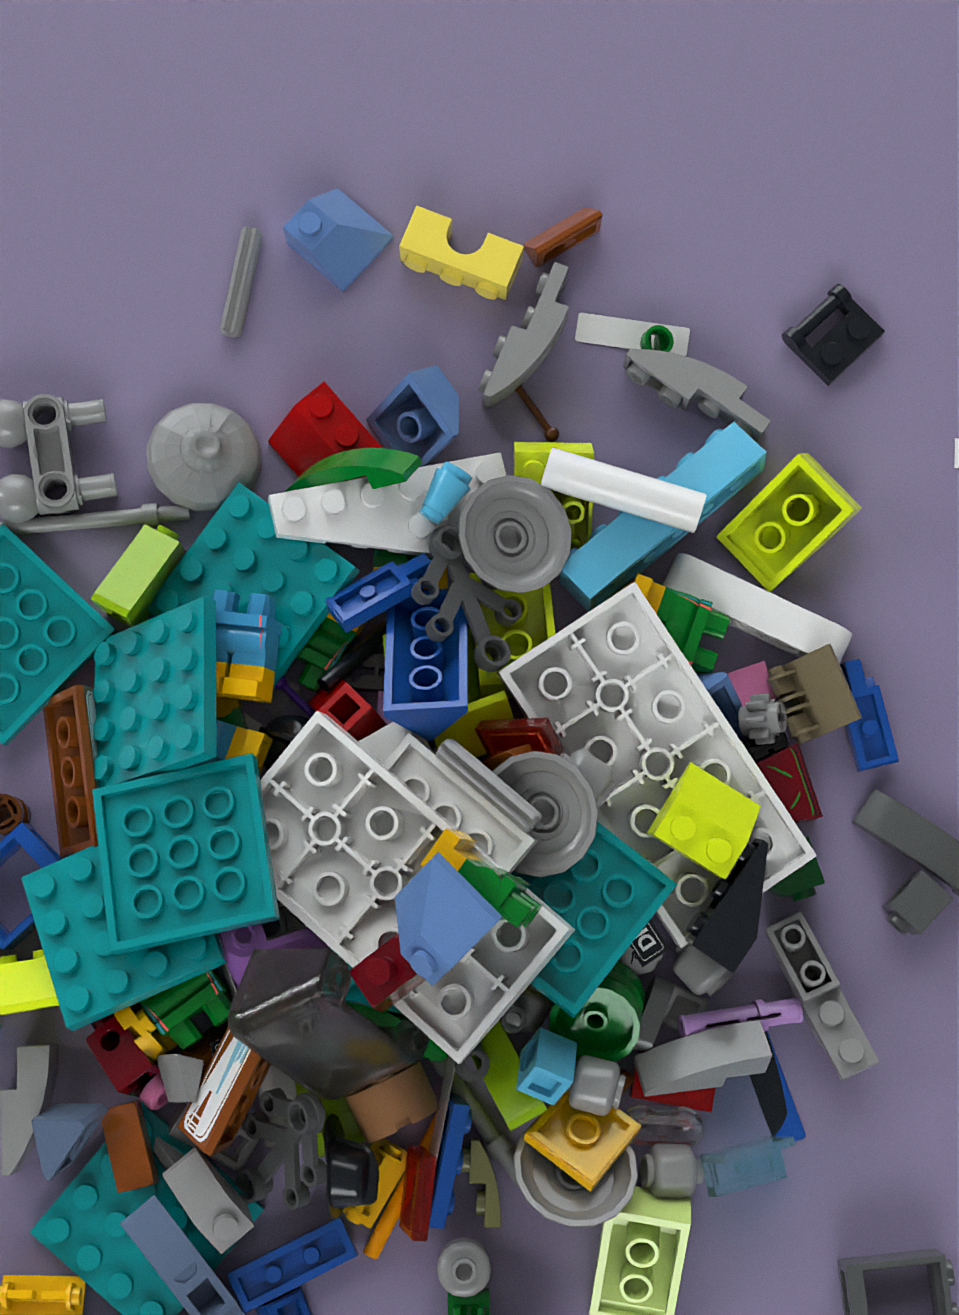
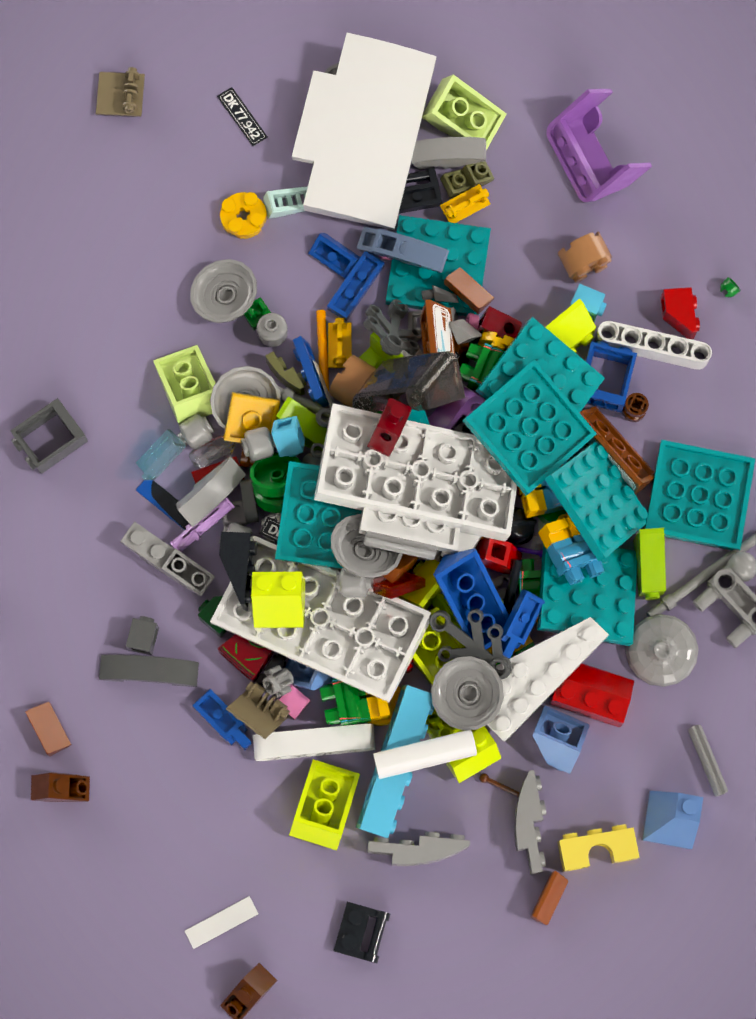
camera: 150 degrees right, 5 degrees down
(23, 1103) = (531, 283): light grey slope -> none
(64, 1132) = (504, 278): sand blue slope -> none
(209, 1200) = (413, 285): light grey slope -> none
(350, 1170) = (356, 337): black piece -> none
(380, 466) = (563, 685): green slope -> none
(417, 1193) = (315, 349): clear red tile -> none
(440, 919) = (382, 450): medium blue slope -> none
(445, 492) = (518, 694): medium azure cone -> none
(495, 885) = (374, 486): green hips -> none
(624, 332) = (474, 864): white sticker -> none
(663, 339) = (453, 865): green hinge -> none

